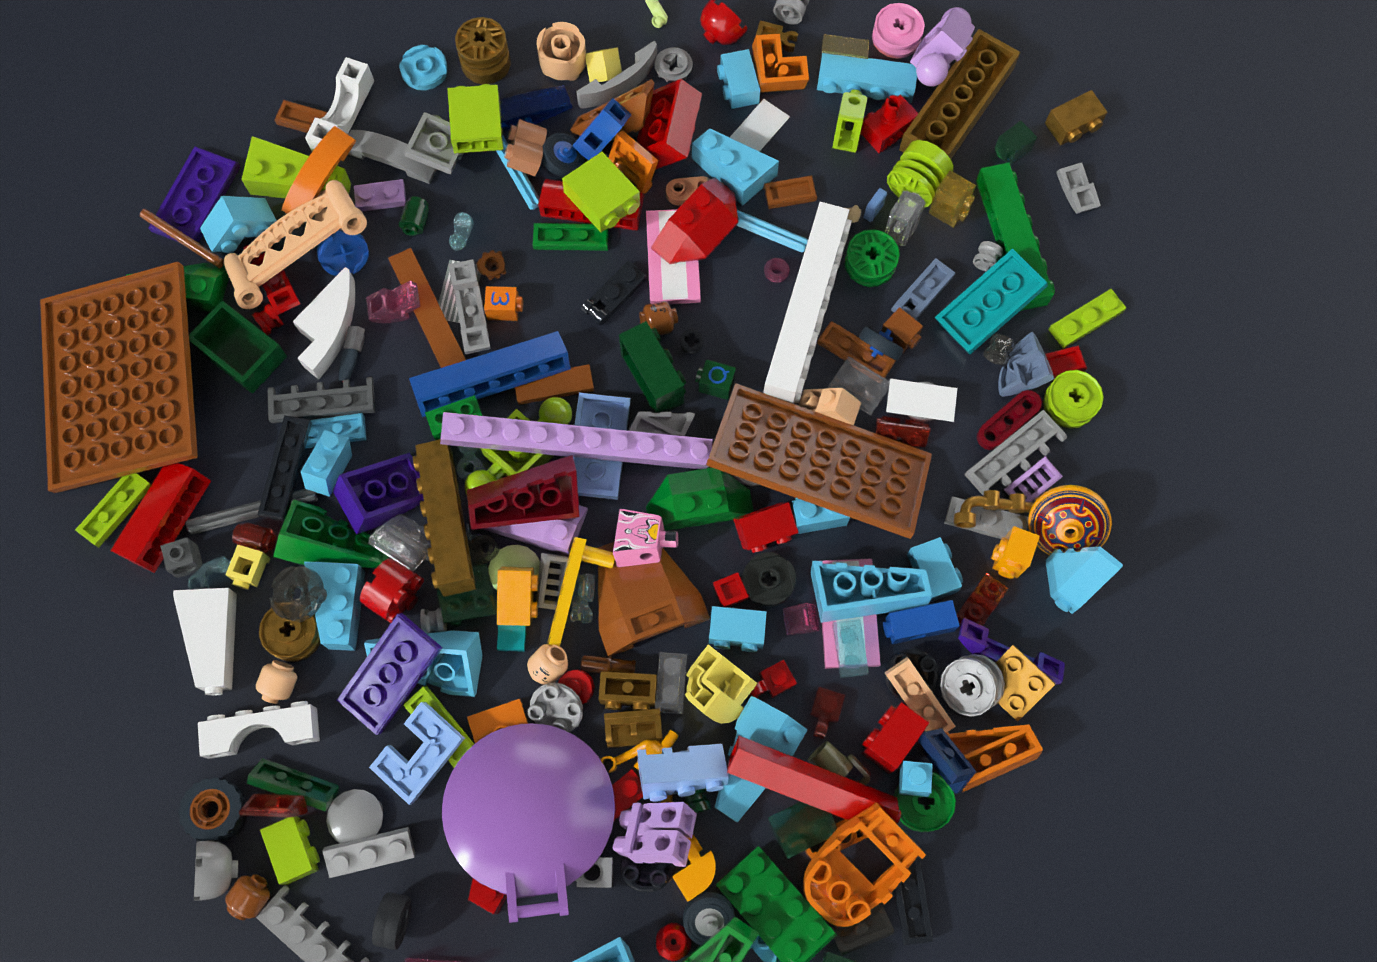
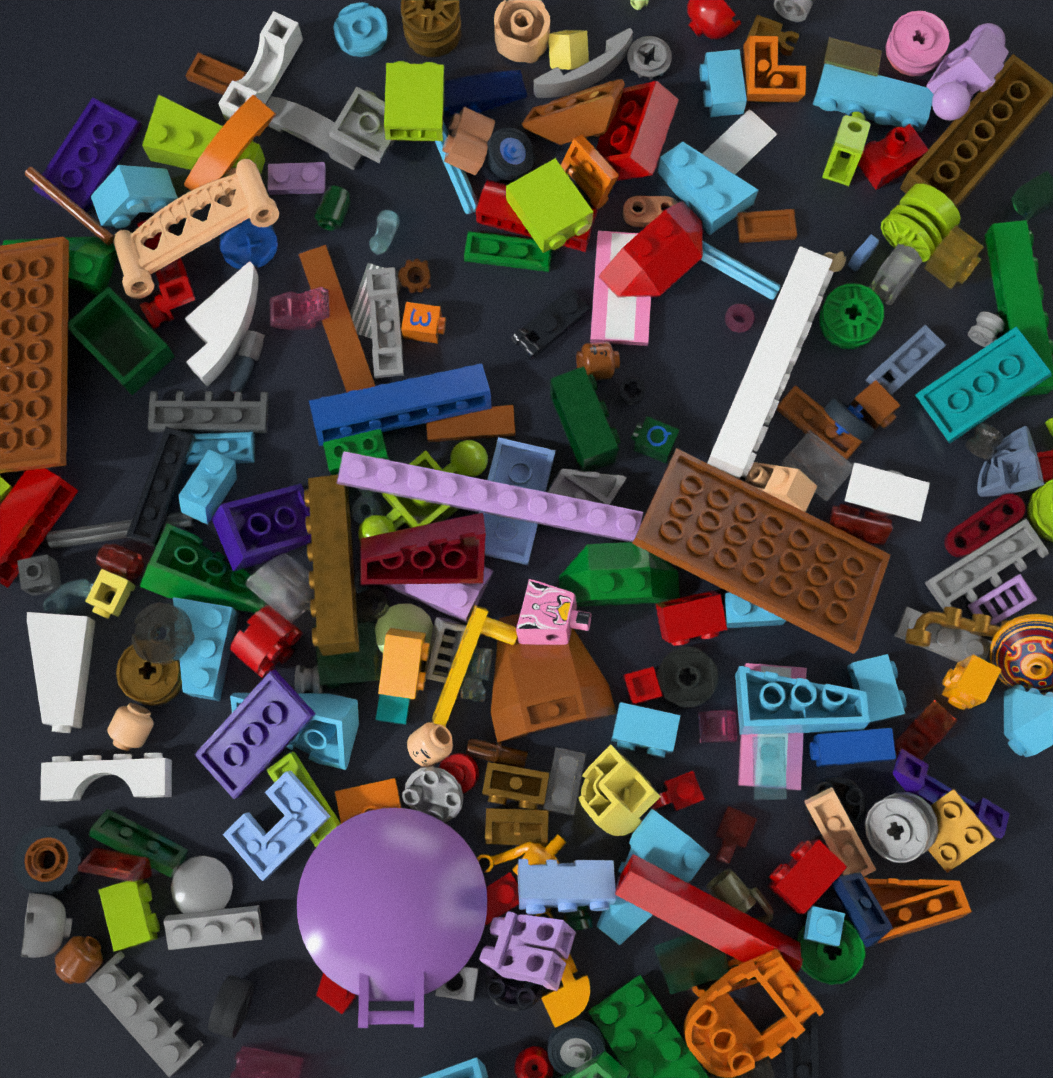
camera: 10 degrees right, 5 degrees up
(602, 129) = (558, 131): blue brick -> none

